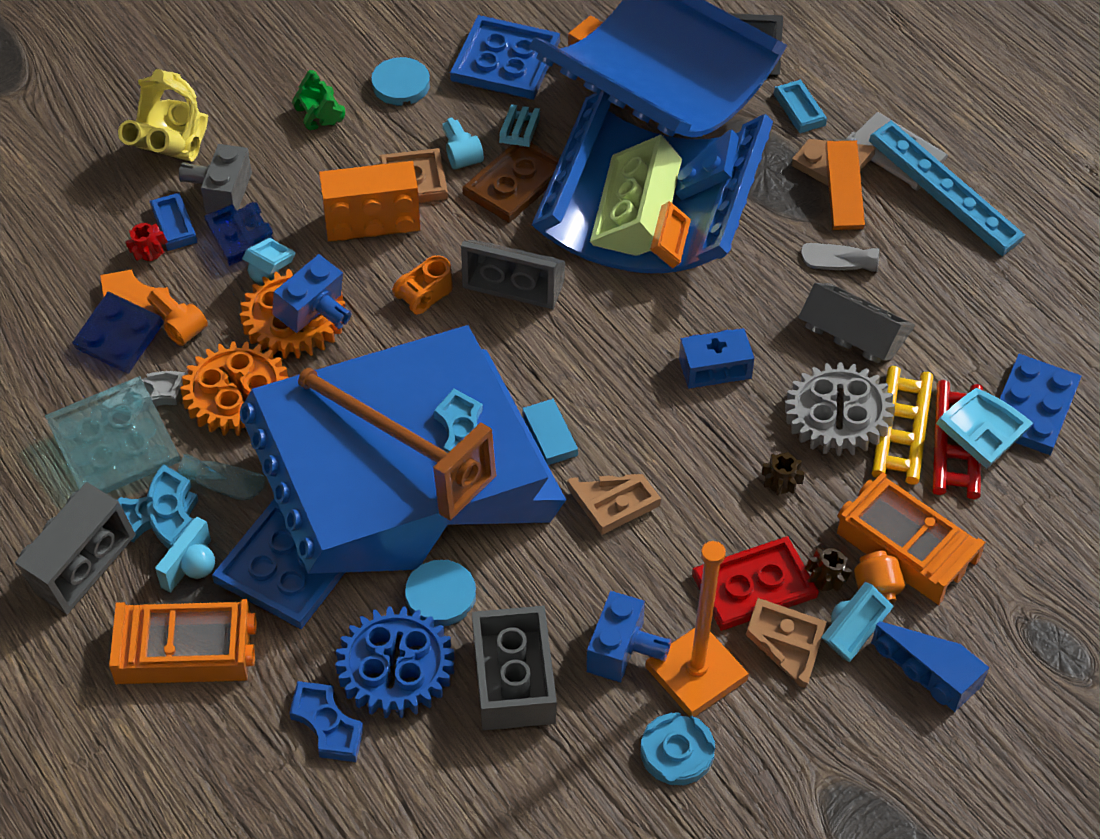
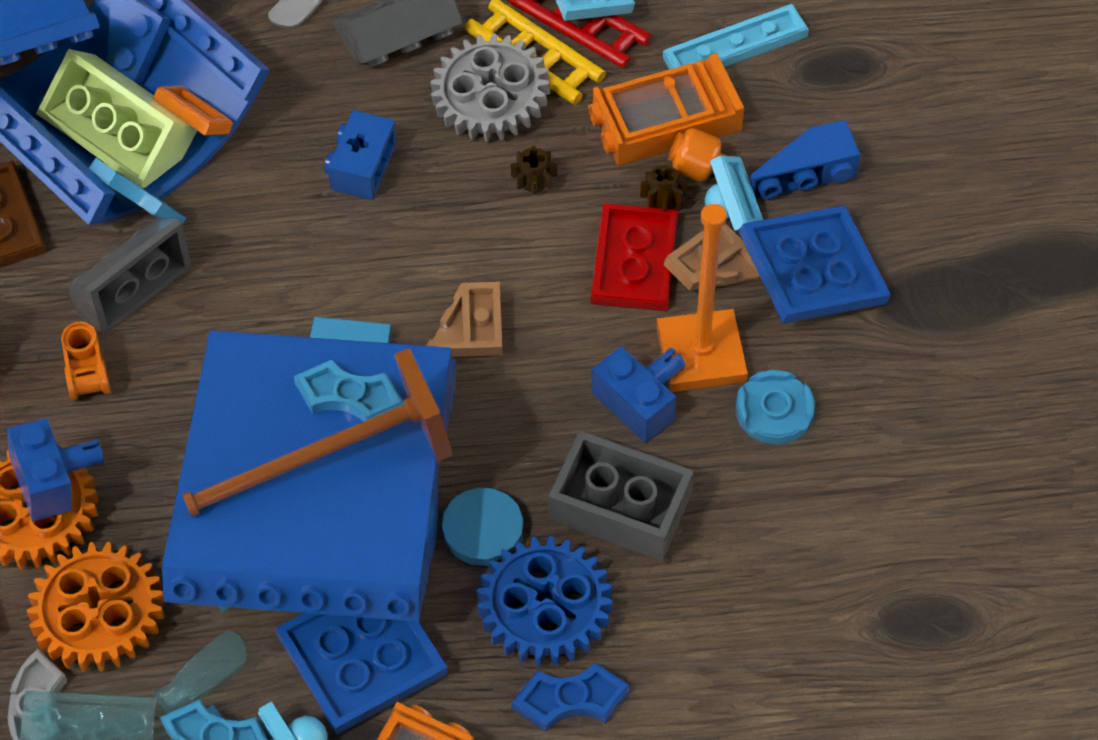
camera: 60 degrees left, 5 degrees up
(578, 250) = (134, 192): none -> dark azure tile
(830, 712) = (814, 264): none -> blue plate
(1027, 562) = (741, 39): none -> medium azure tile

